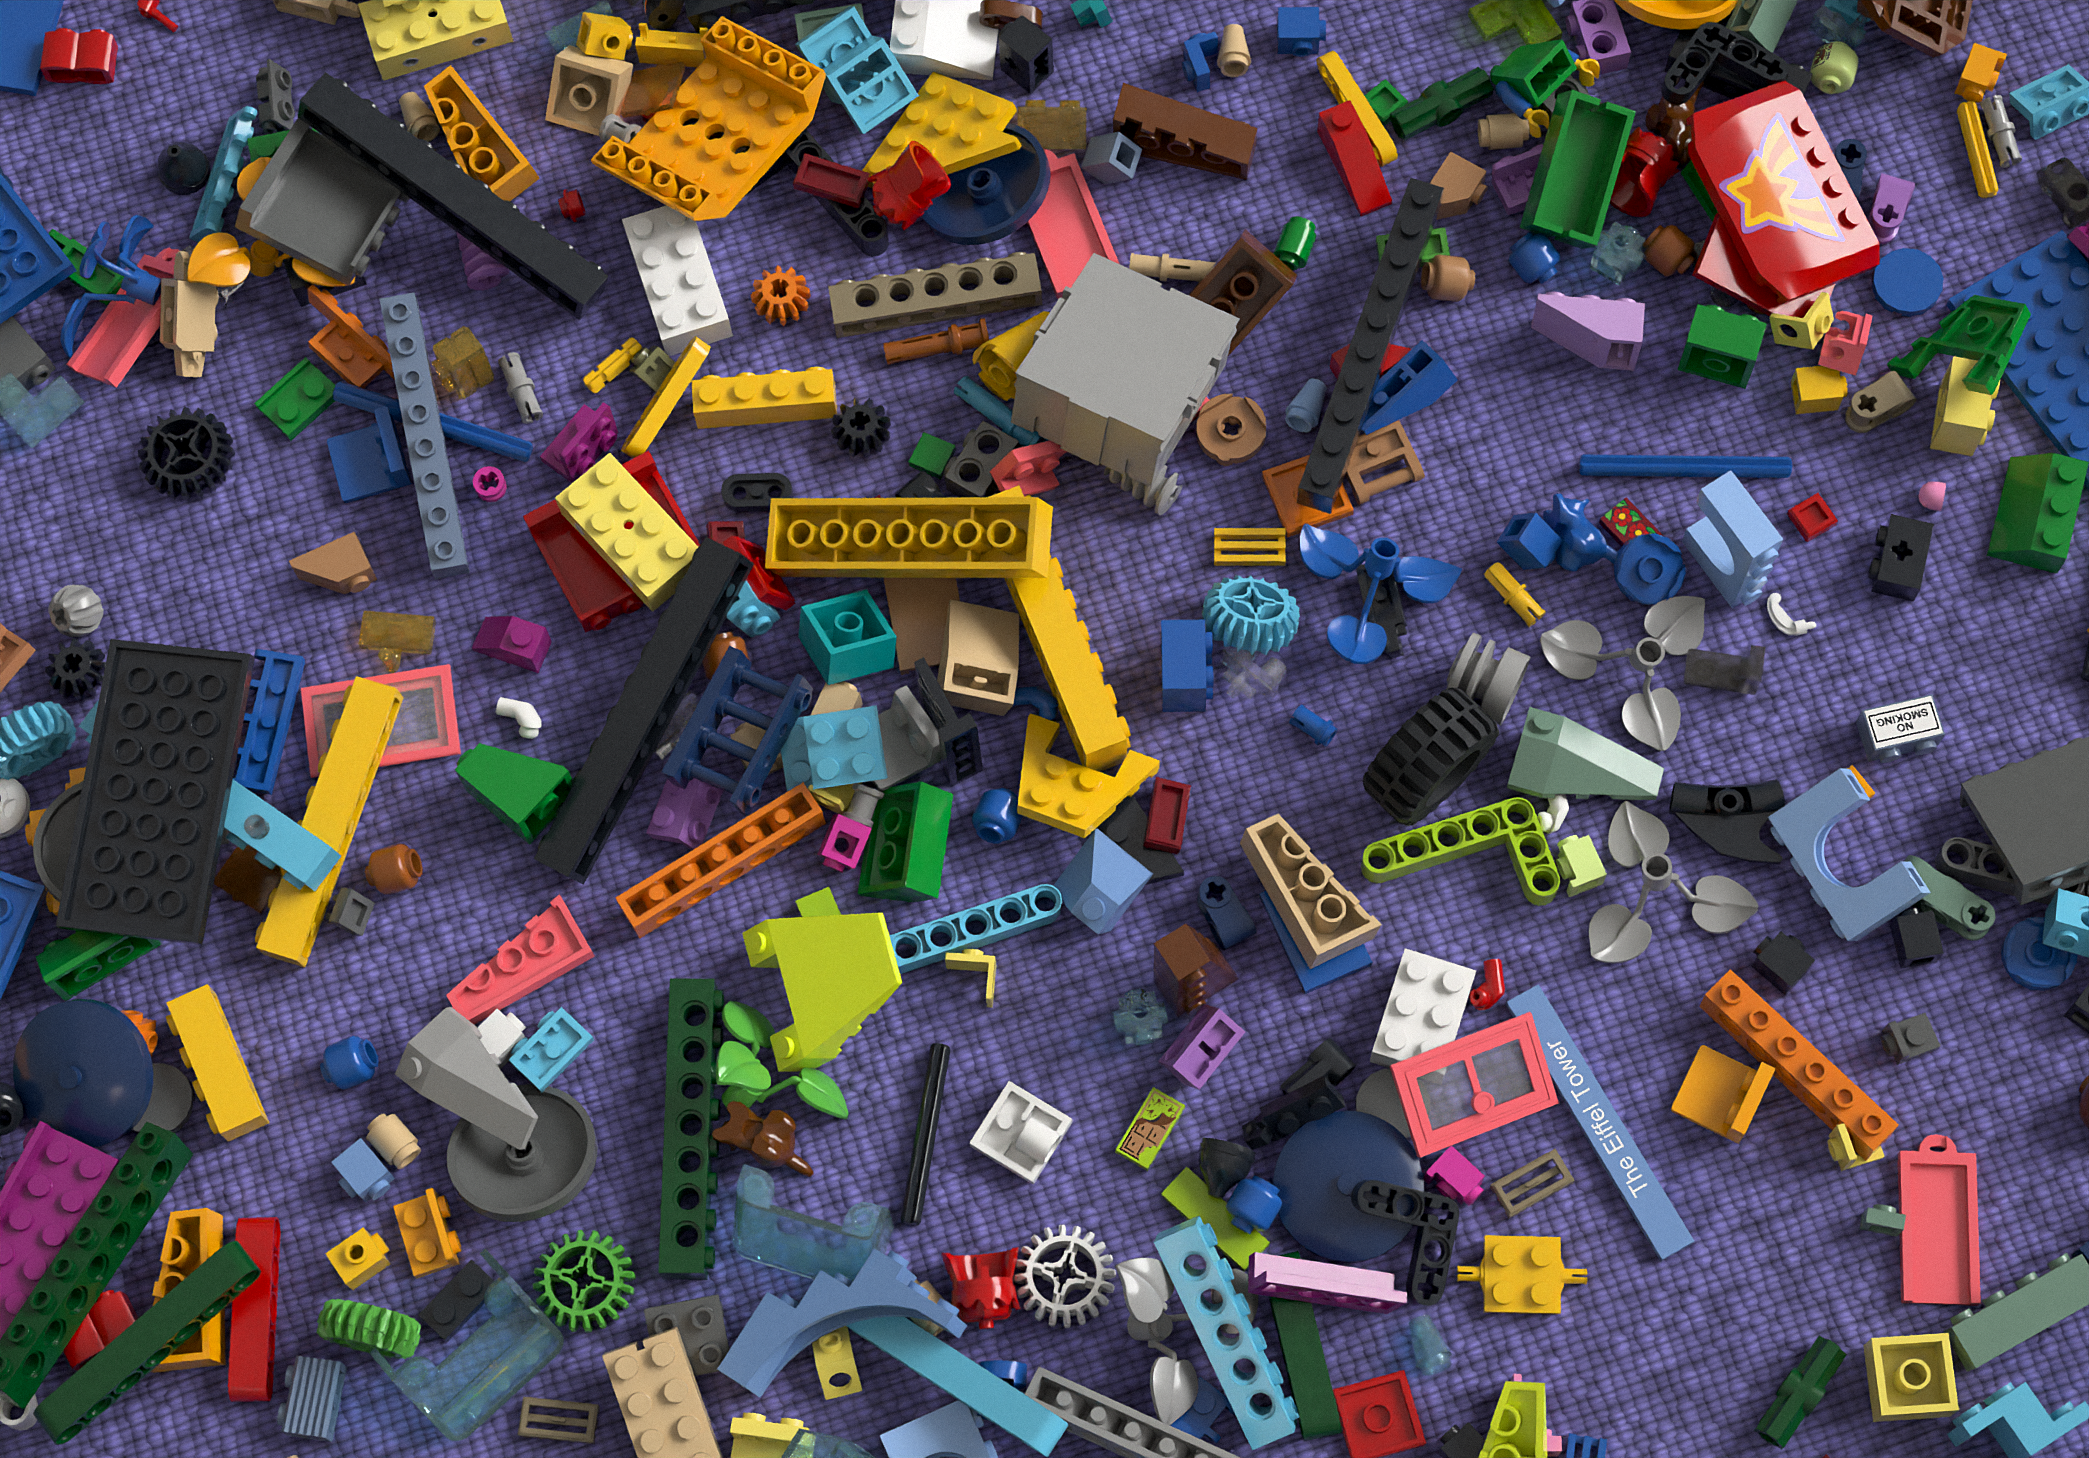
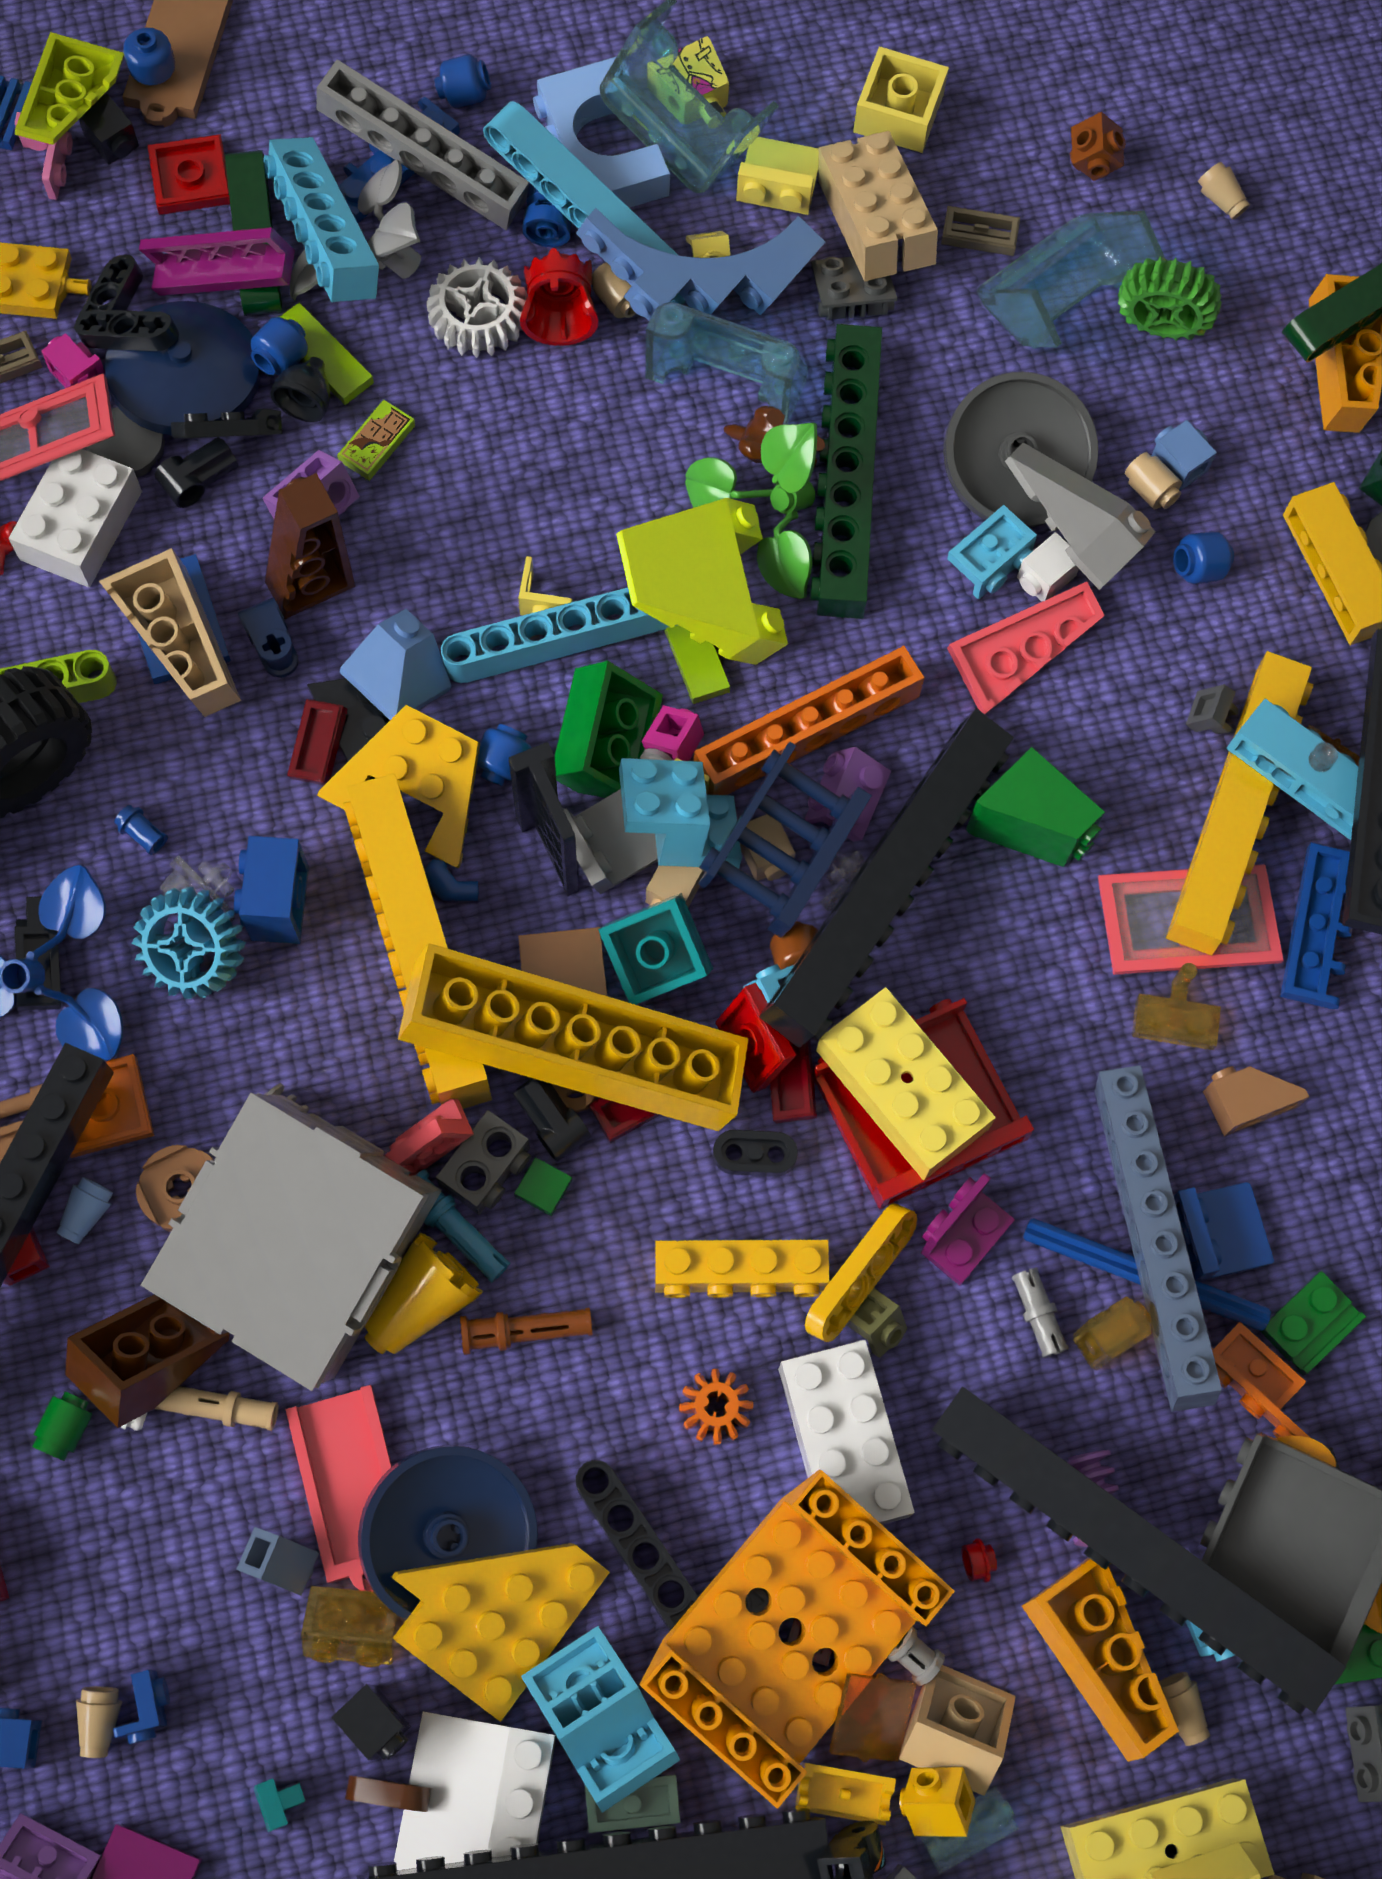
camera: 175 degrees right, 0 degrees up
(255, 1314) = (1283, 368): red beam -> none
(312, 1398) = (1222, 251): sand blue brick -> none
(359, 1257) = (1183, 375): yellow brick -> none
(394, 869) = (1166, 749): dark orange head -> none
(427, 1234) = (1114, 399): light orange bracket -> none
(457, 1301) = (1082, 339): black plate -> none
(486, 474) = (1069, 1180): dark pink bush -> none
(513, 641) = (1044, 993): magenta slope -> none
(524, 714) = (1027, 913): white arm -> none
(585, 1266) = (978, 346): bright green gear -> none
(612, 365) = (926, 1334): yellow axle -> none
(831, 180) = (642, 1547): dark red tile -> none
(851, 417) = (640, 1229): black gear -> none
(908, 185) = (550, 1522): red hat -> none
(925, 1134) = (606, 453): black axle -> none
(951, 304) = (411, 1389): dark tan brick -> none
(979, 658) = (509, 911): tan slope -> none
(1021, 1132) = (507, 441): white plate -> none
(1140, 1030) = (372, 534): clear light blue brick -> none
(1184, 133) = (179, 1589): reddish brown wedge -> none
(1249, 534) = (181, 1028): yellow tile -> none
(1428, 1346) = (128, 221): clear light blue cone -> none

